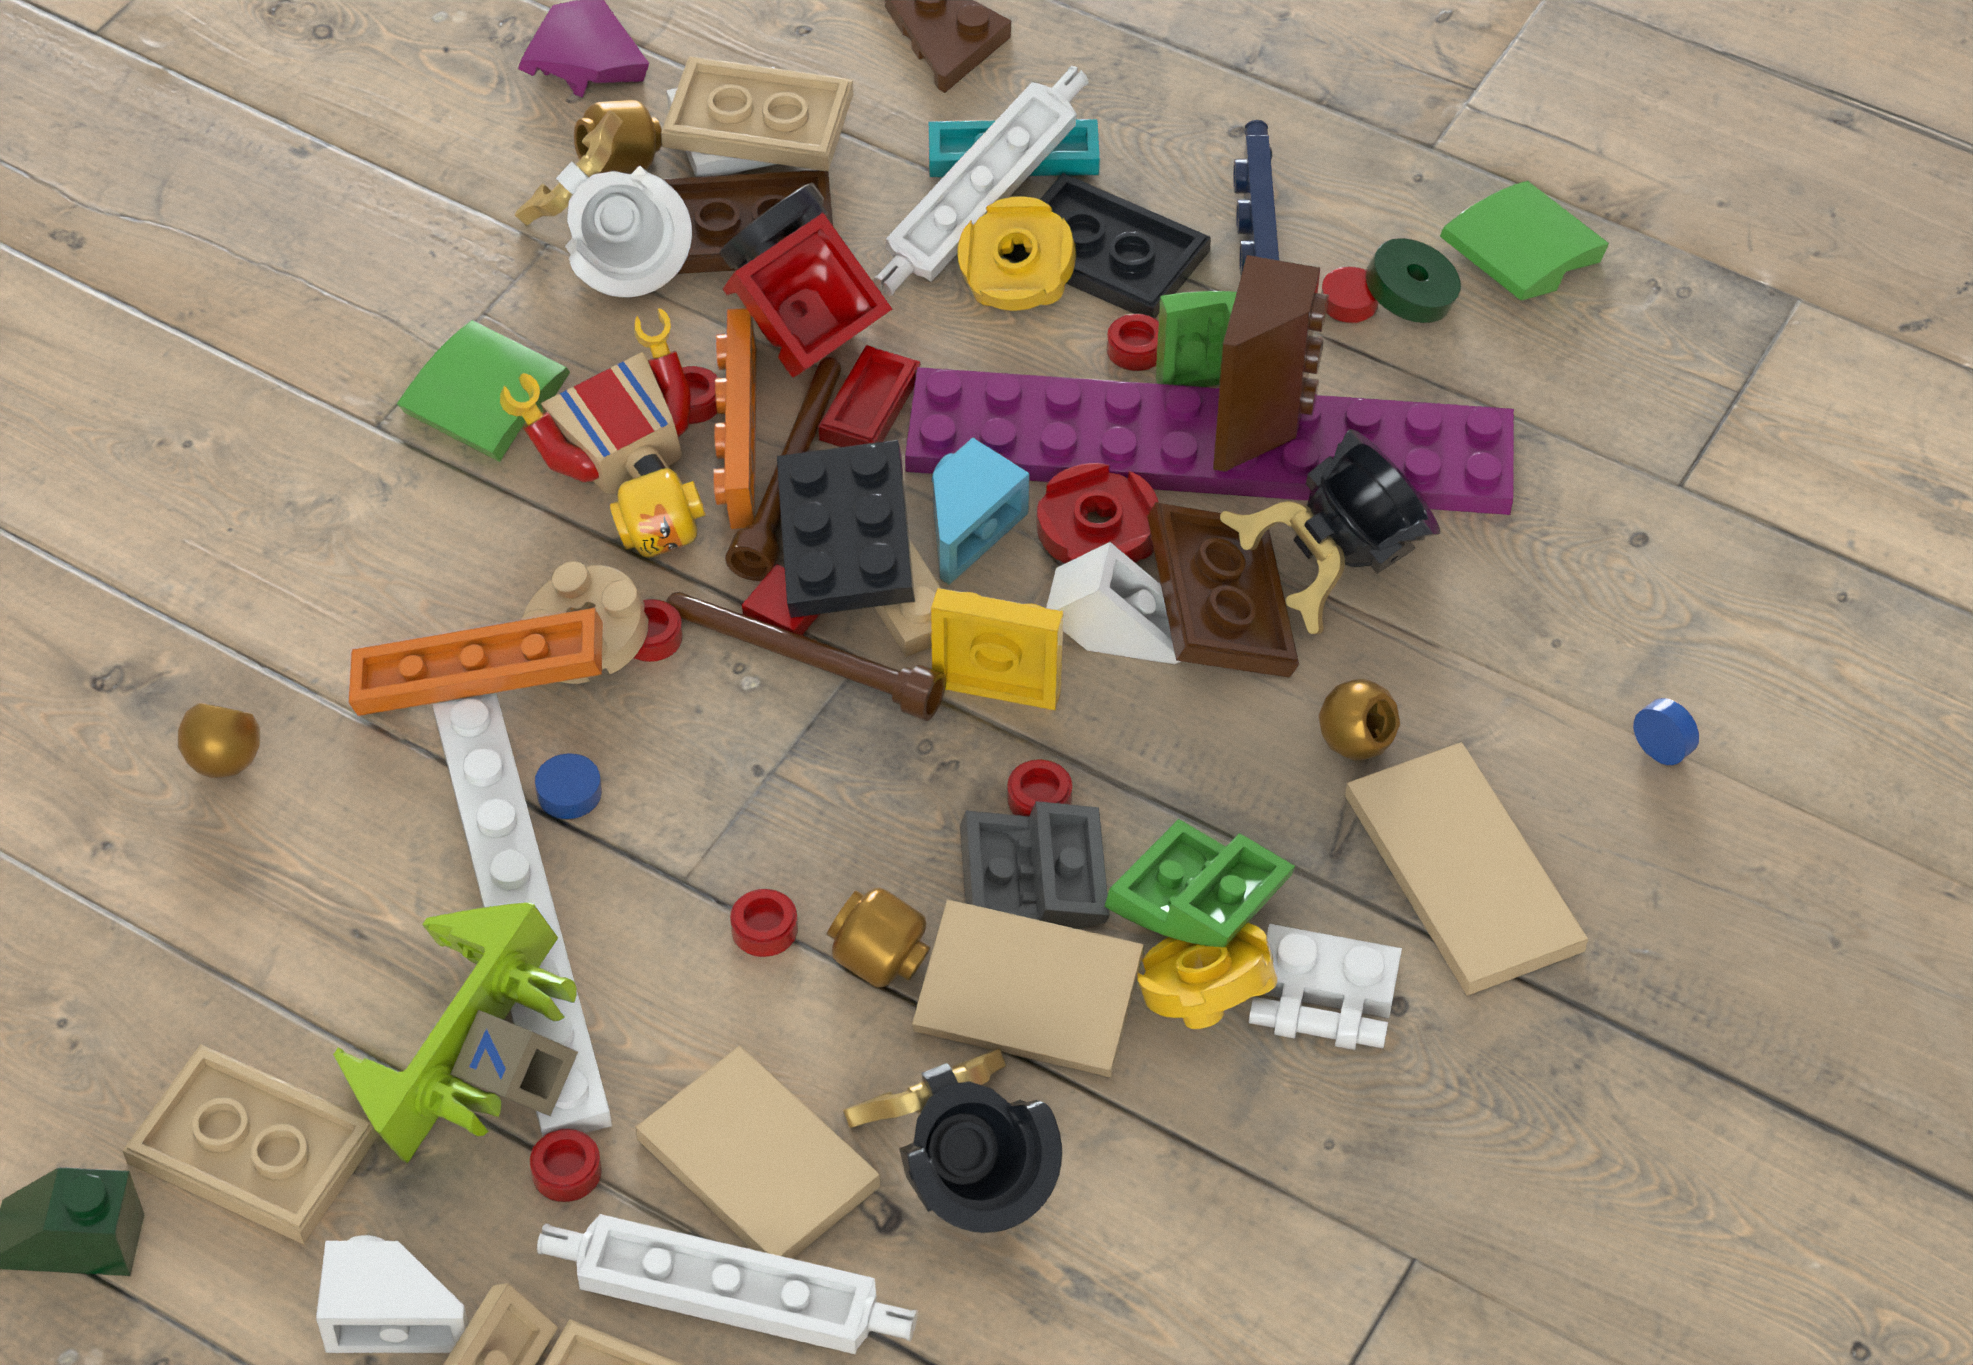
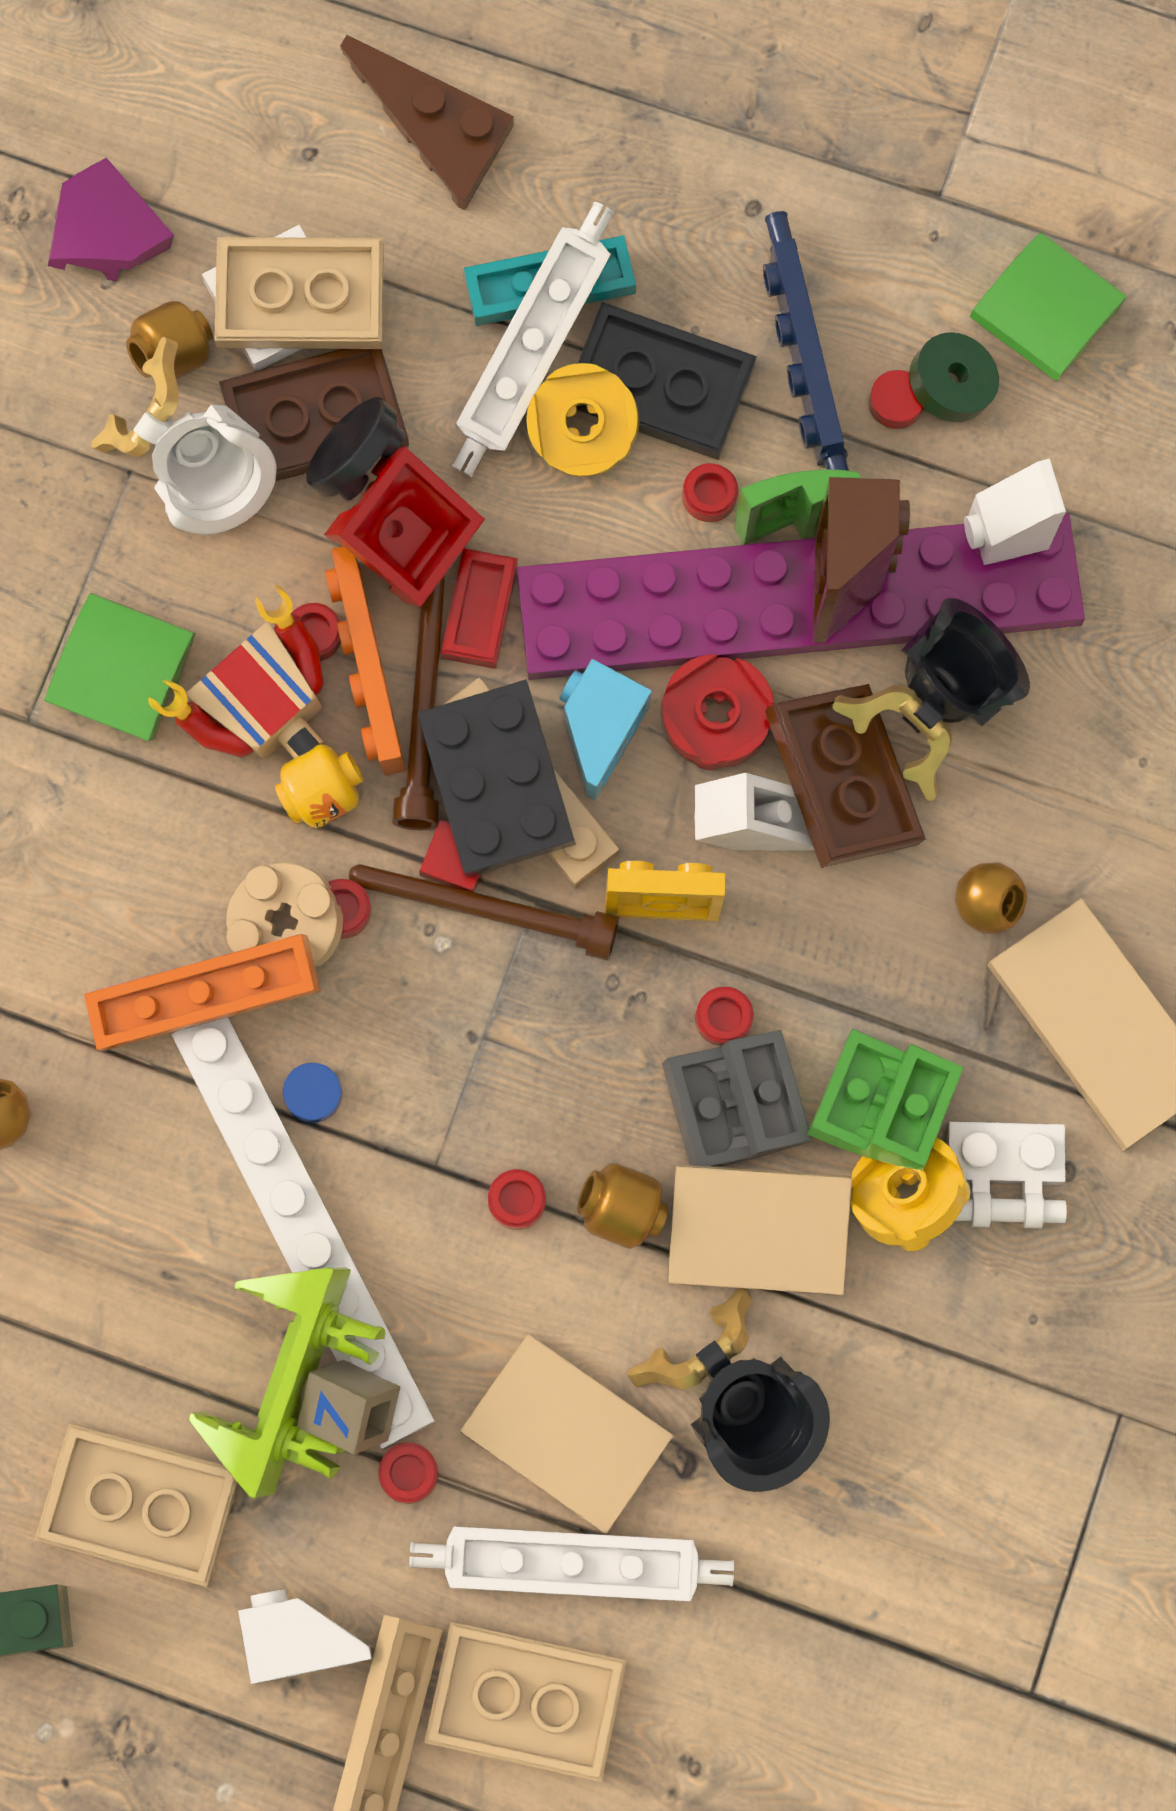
camera: 15 degrees left, 25 degrees up
(1450, 374) = (1016, 515): none -> white slope

